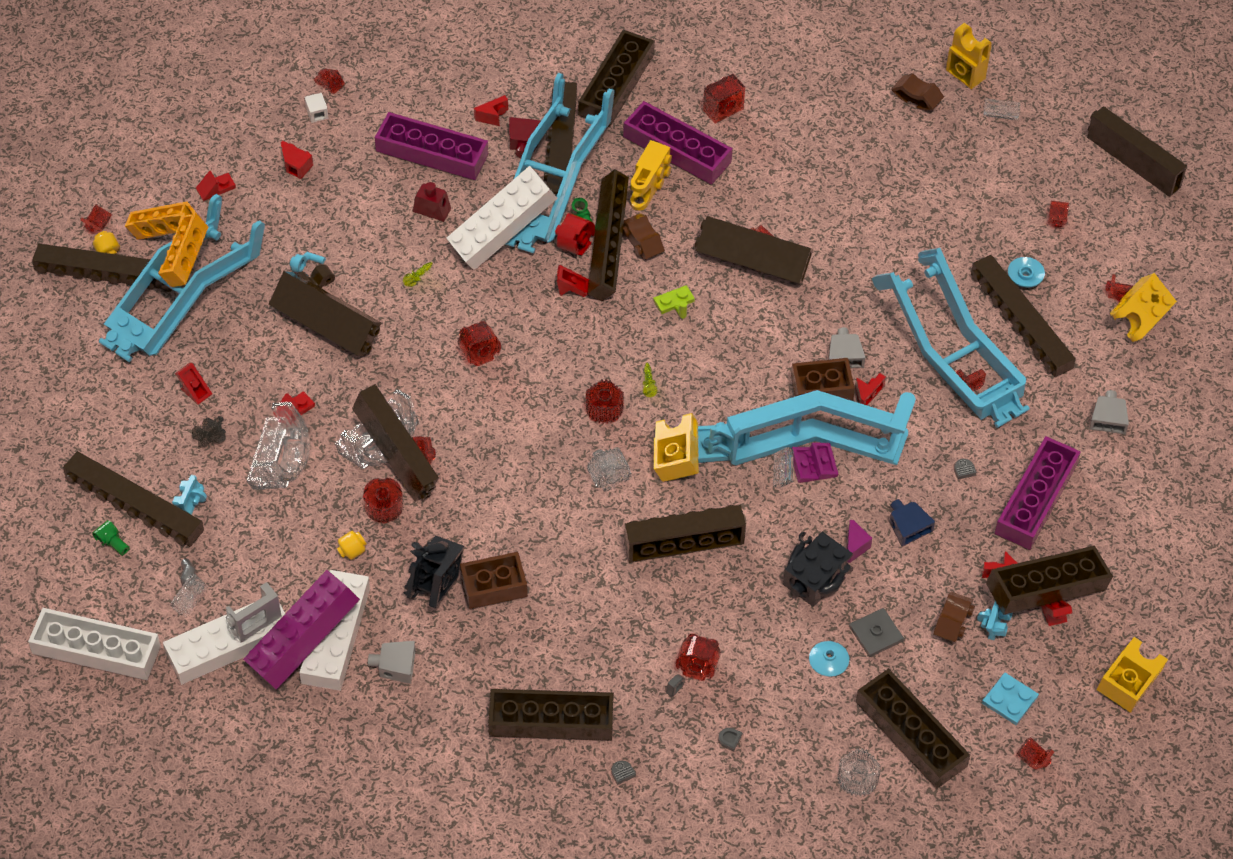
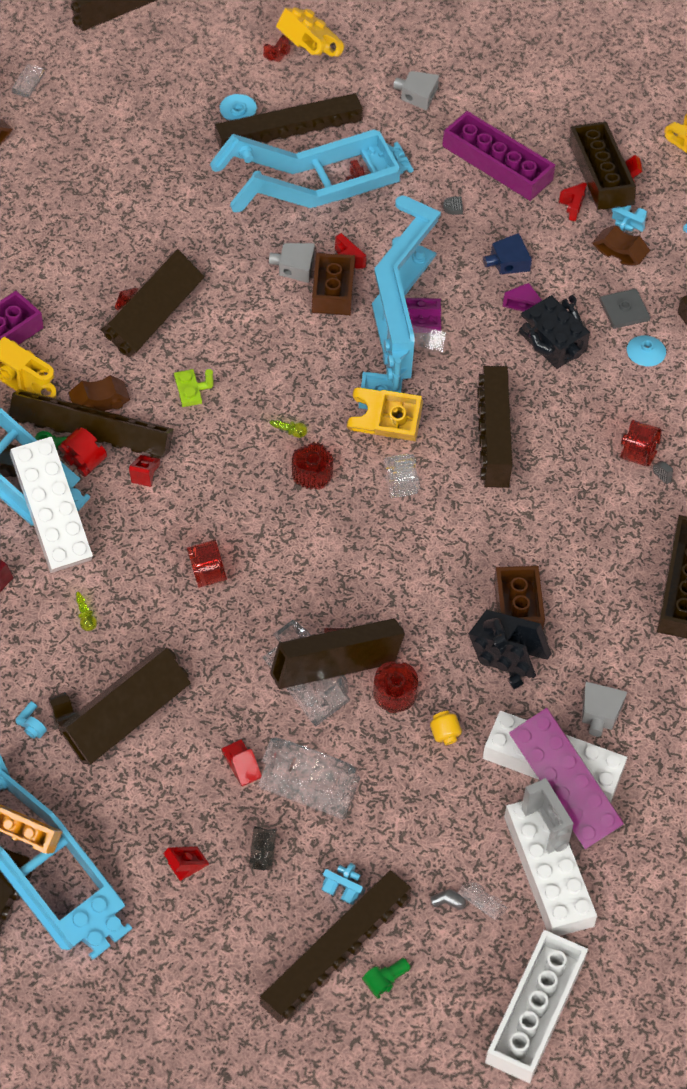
camera: 80 degrees left, 0 degrees up
(1058, 213) = (174, 70): clear red bracket -> none

